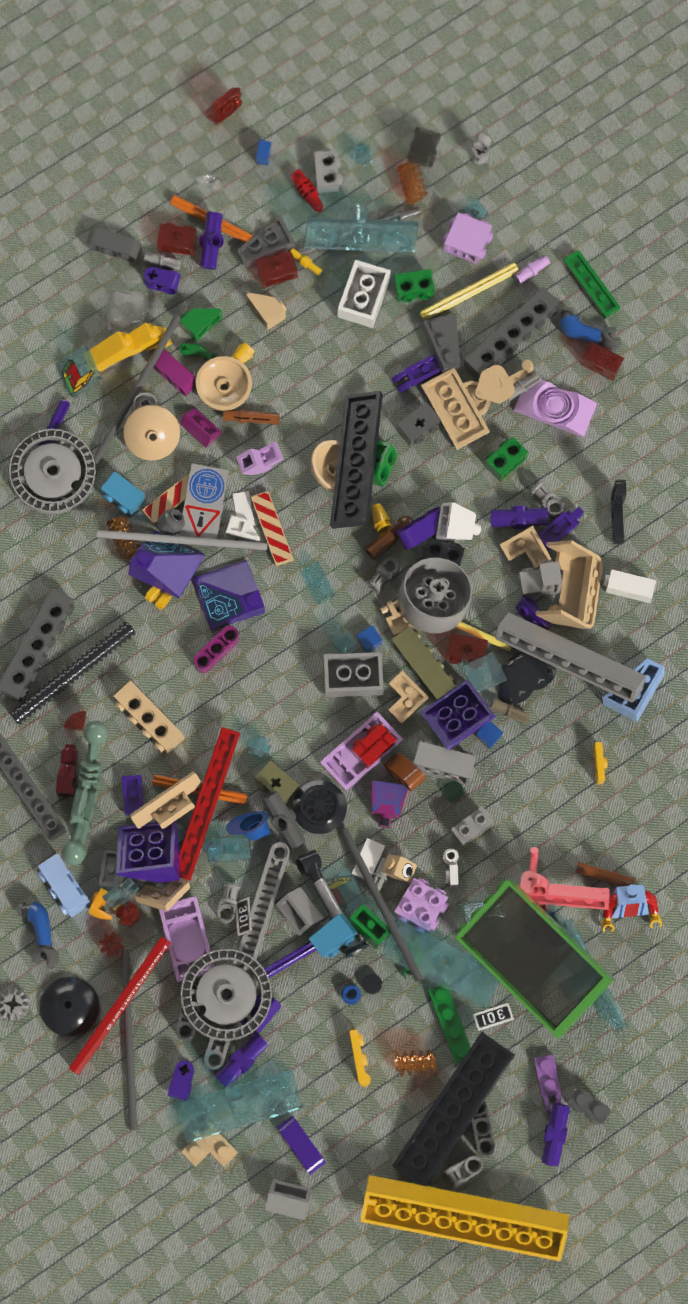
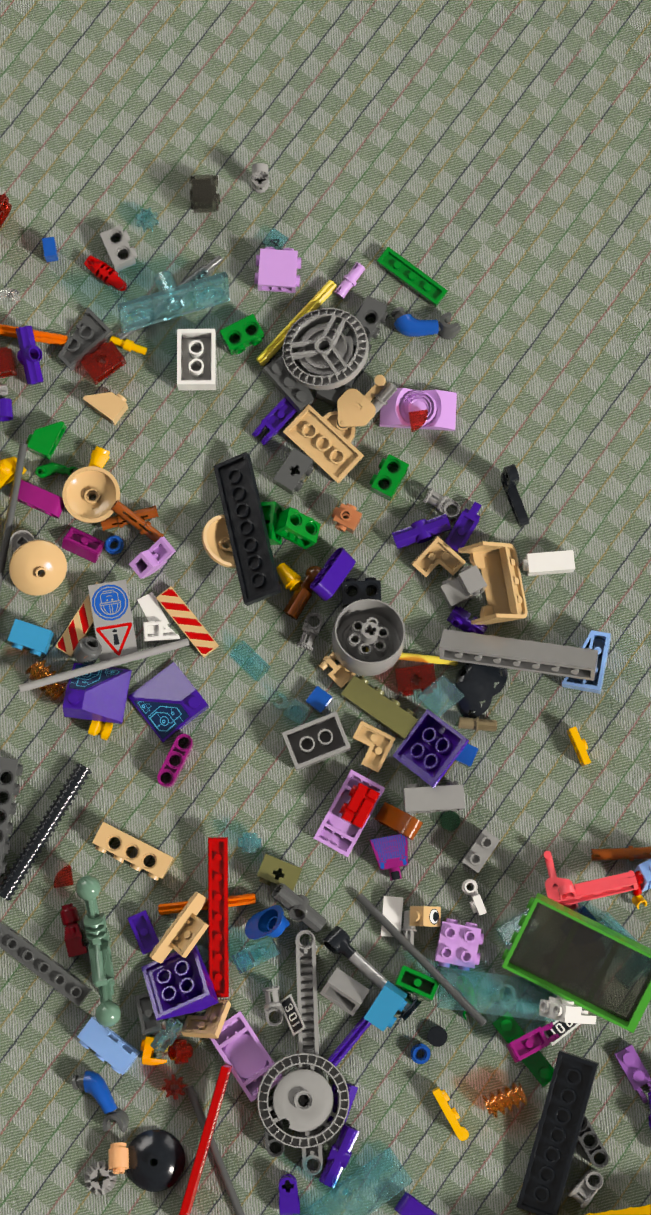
camera: 20 degrees left, 5 degrees up
(36, 990) = (118, 1158): none -> light nougat brick
(228, 431) = (112, 539): none -> blue plate
(244, 403) = (154, 534): none -> dark orange pin
(319, 807) = (328, 881): black wheel -> none
(345, 892) = (380, 955): clear light blue tile -> none
(404, 475) = (297, 528): none -> green brick
(411, 182) = (204, 233): clear orange piece -> none
(453, 482) = (351, 522): none -> nougat brick
(456, 523) = (364, 558): white torso -> none
(458, 1017) = (531, 1043): none -> magenta hinge
(484, 338) = (330, 365): none -> light grey piece
(500, 996) = (564, 1011): none -> white plate
(551, 414) = (417, 419): none -> clear red tile
(602, 361) = (448, 350): clear red brick -> none

